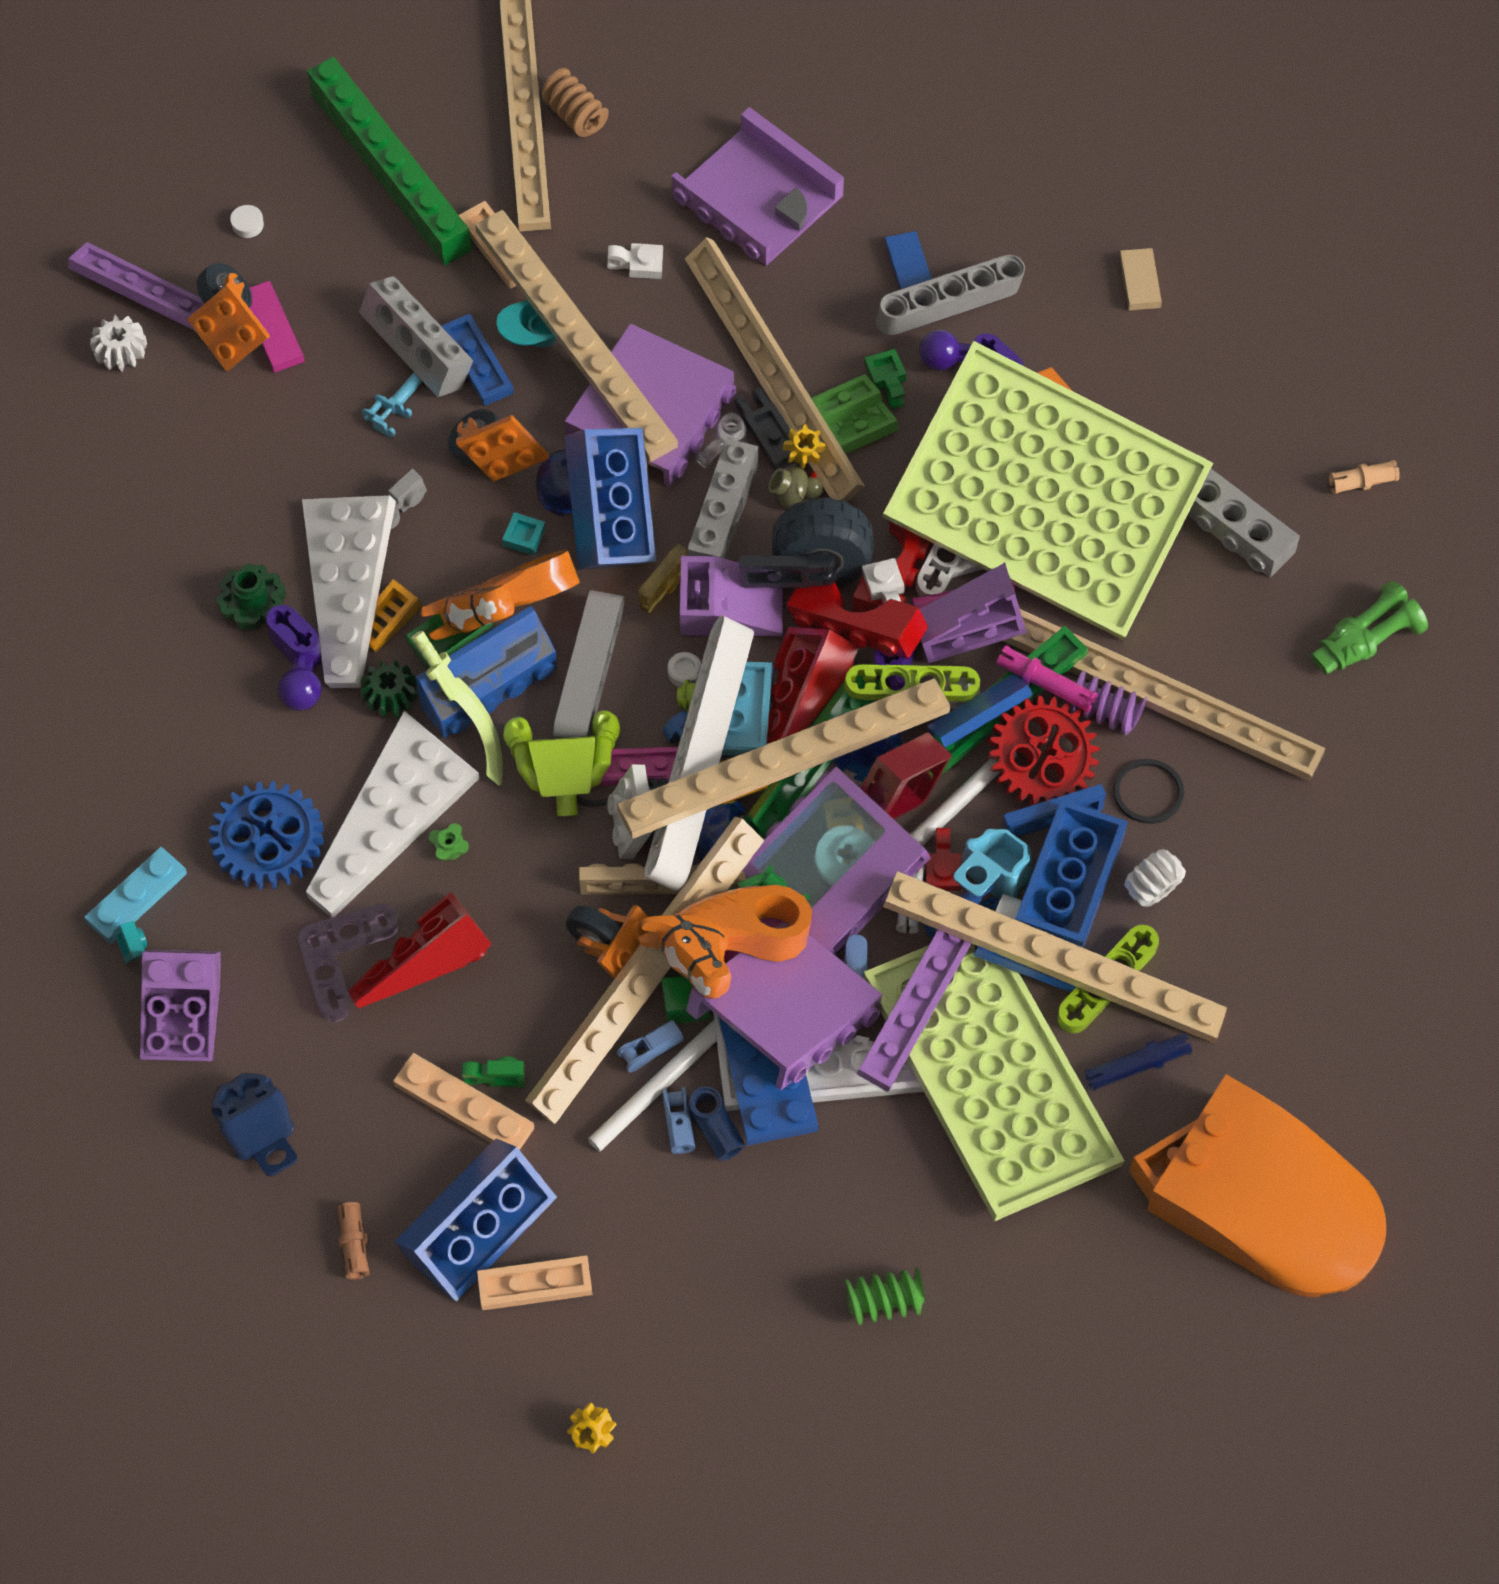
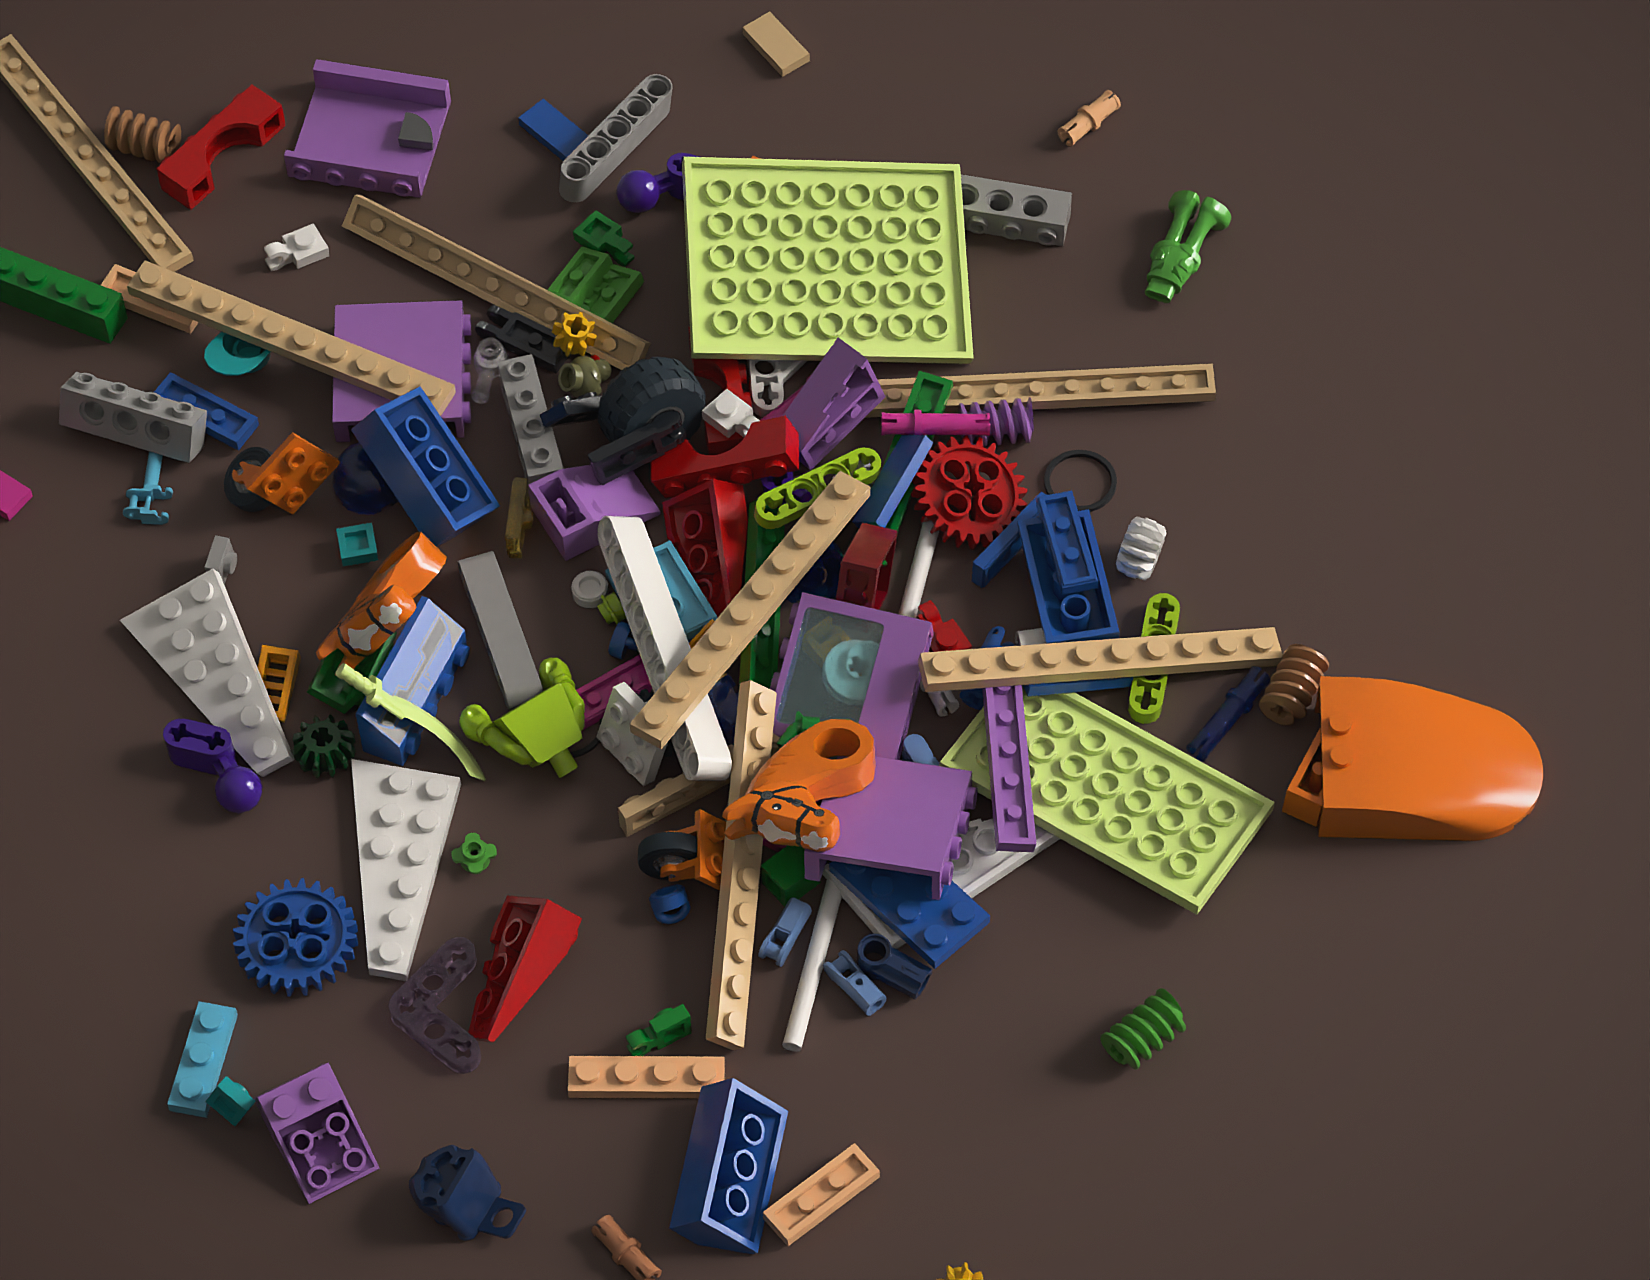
camera: 30 degrees left, 5 degrees down
(249, 595) = (130, 732): dark green plant -> none
(574, 966) = (669, 899): none -> blue tile
(665, 130) = (248, 119): none -> red arch
(751, 509) = (569, 411): none -> black hinge
(998, 860) = (993, 602): medium azure piece -> none
(1088, 840) = (1067, 542): none -> blue tile
(1208, 1064) = (1293, 684): none -> medium nougat piece

